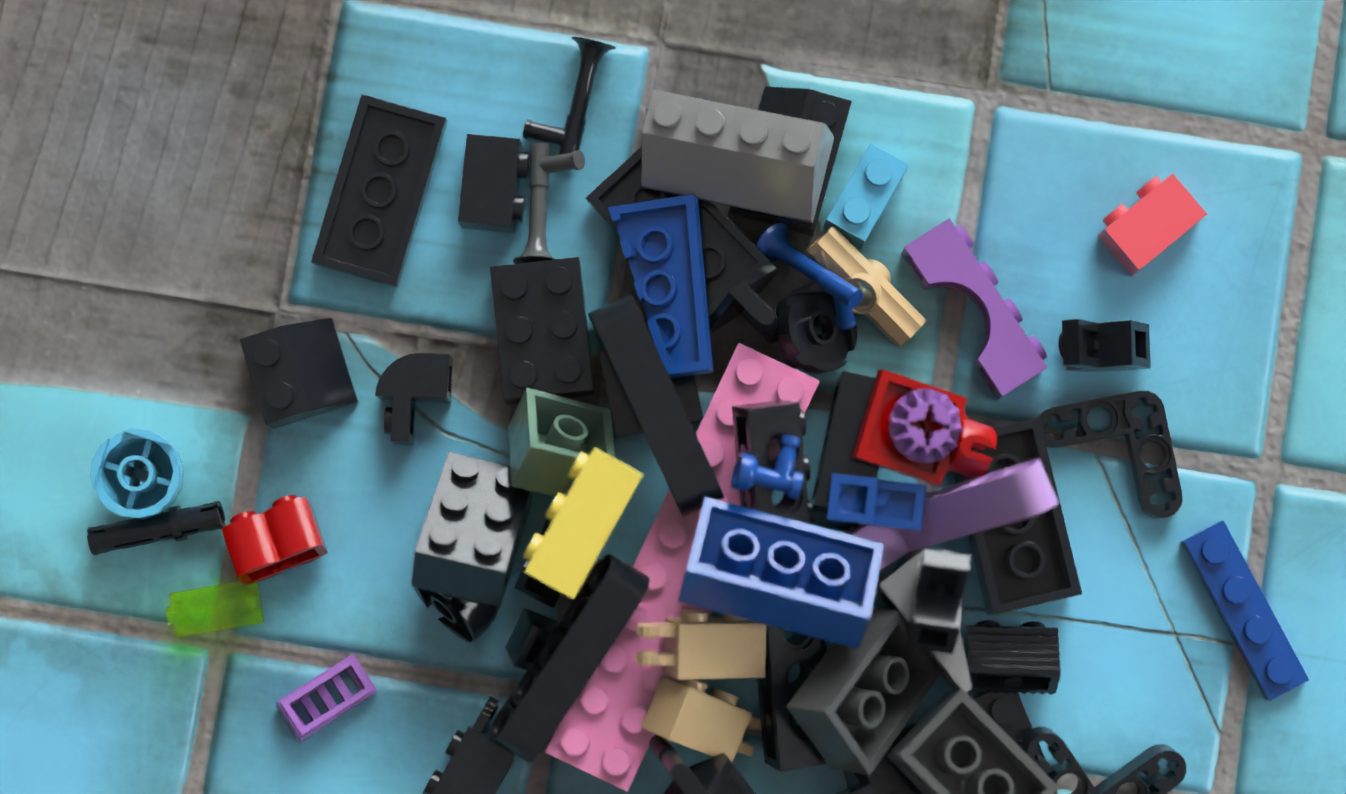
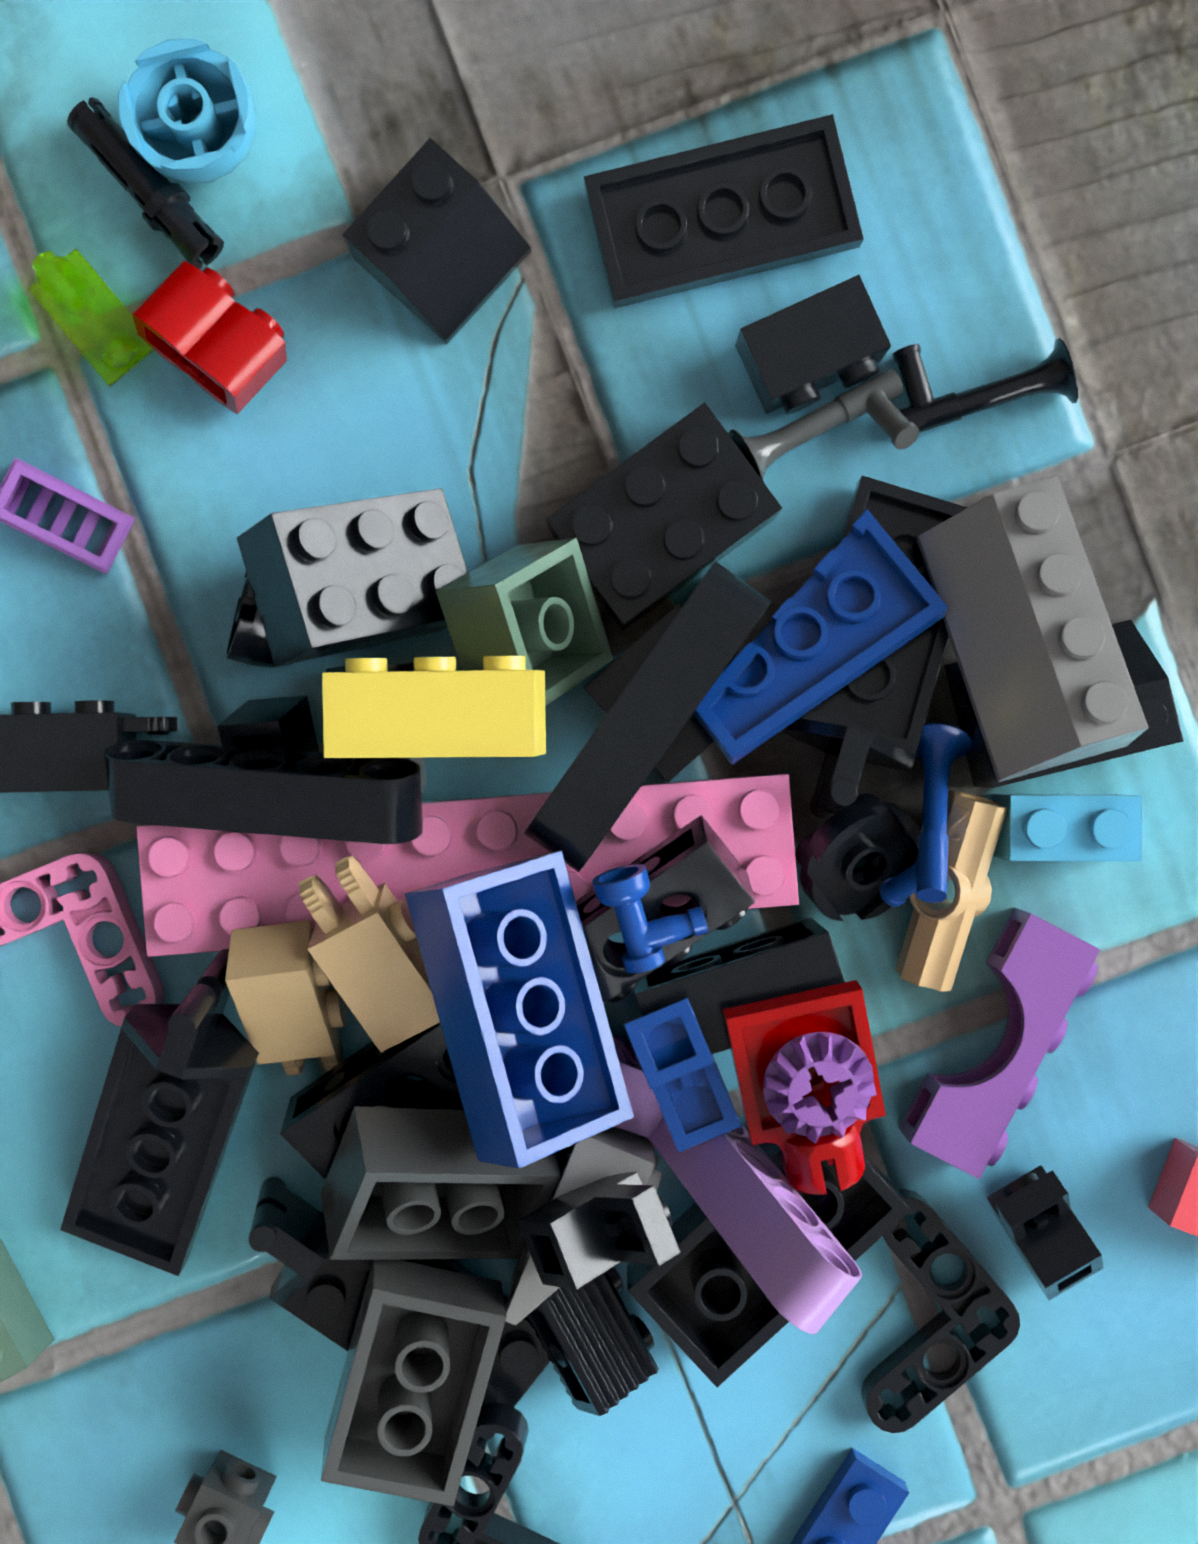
camera: 60 degrees right, 5 degrees up
(413, 379) = (498, 386): black brick -> none

